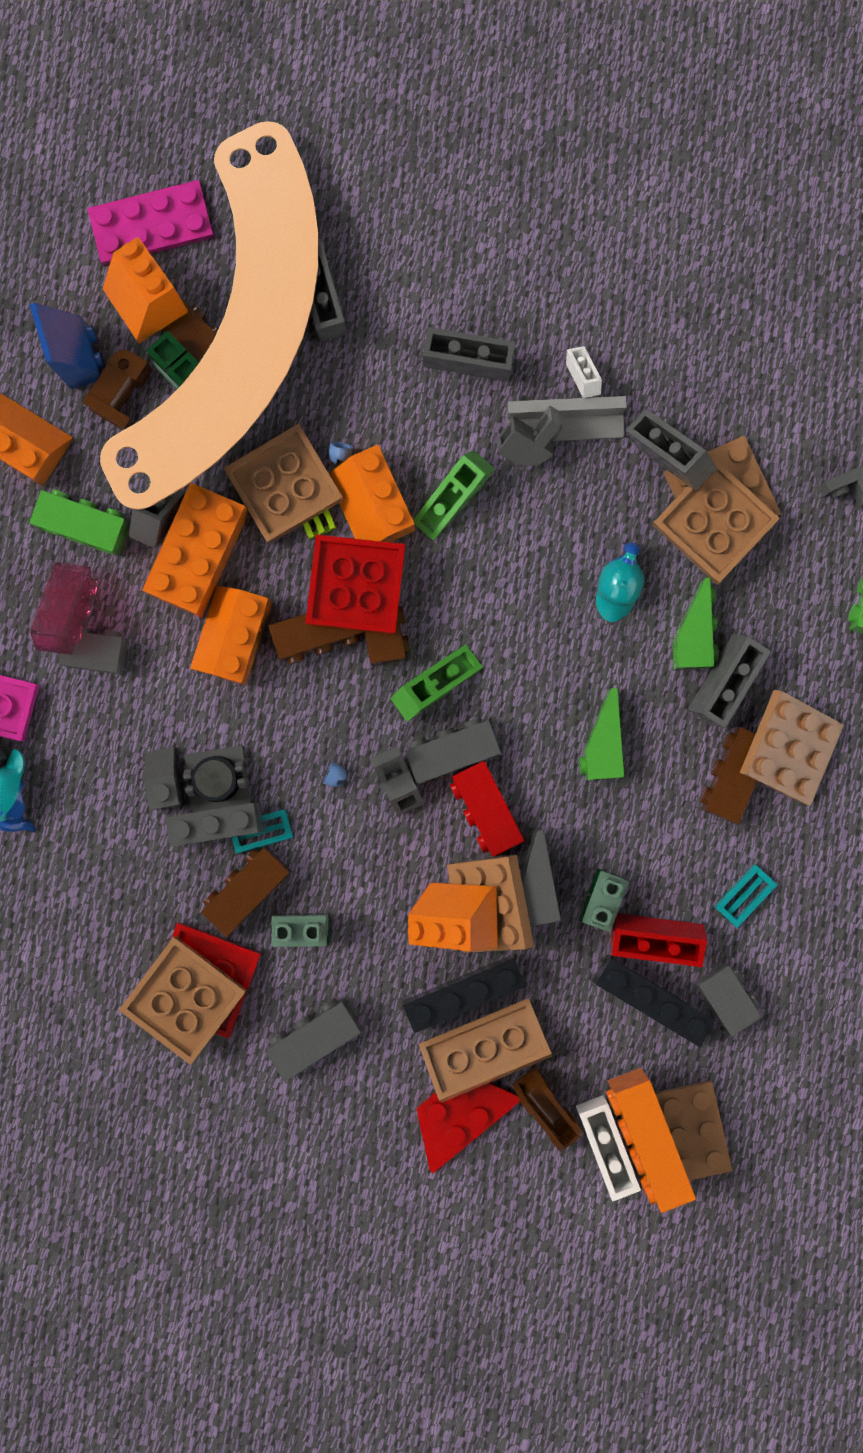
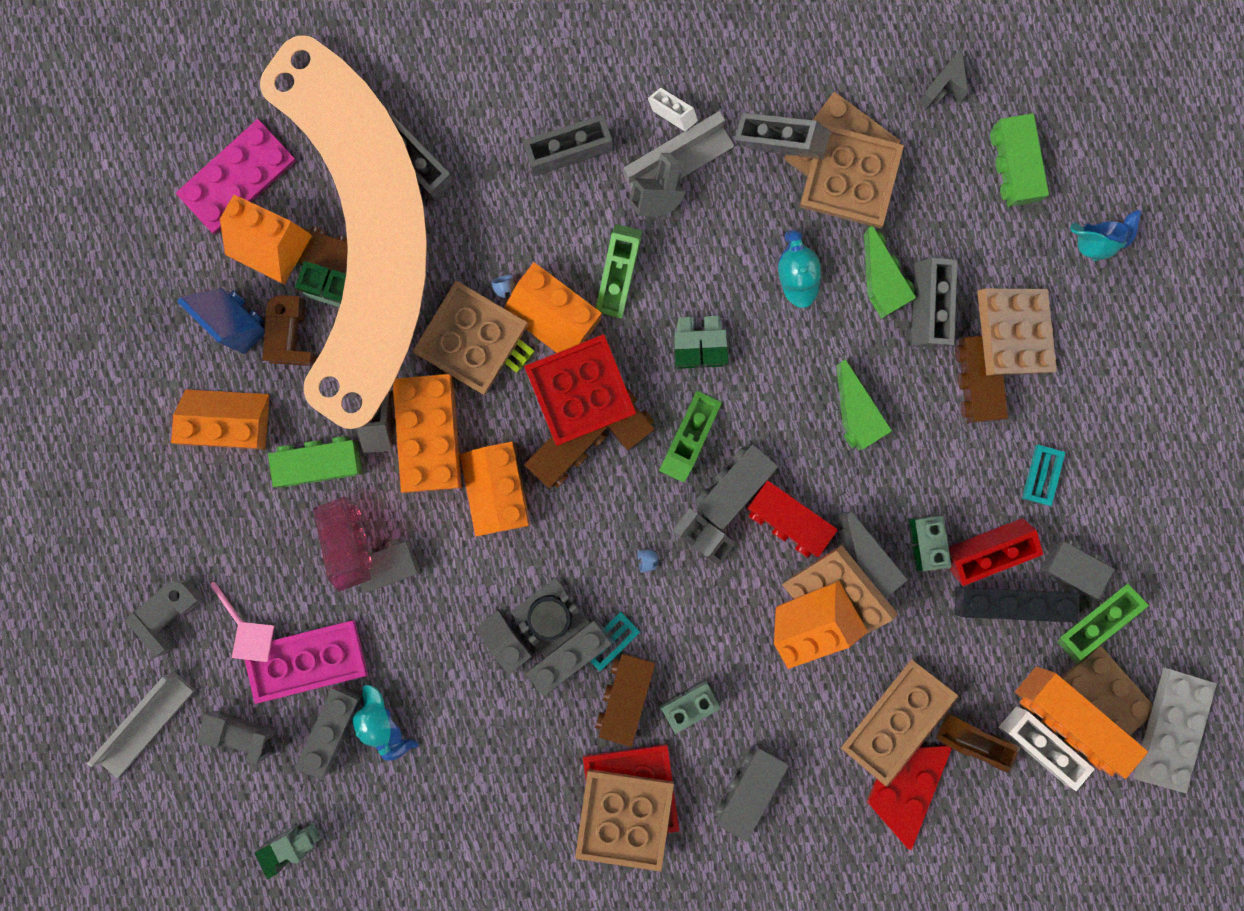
camera: 35 degrees left, 0 degrees up
(463, 993) = (856, 684): black brick -> none
(479, 596) = (712, 340): none -> hips
(723, 1061) = (1102, 623): none -> bright green brick
(738, 1198) = (1175, 730): none -> light grey plate

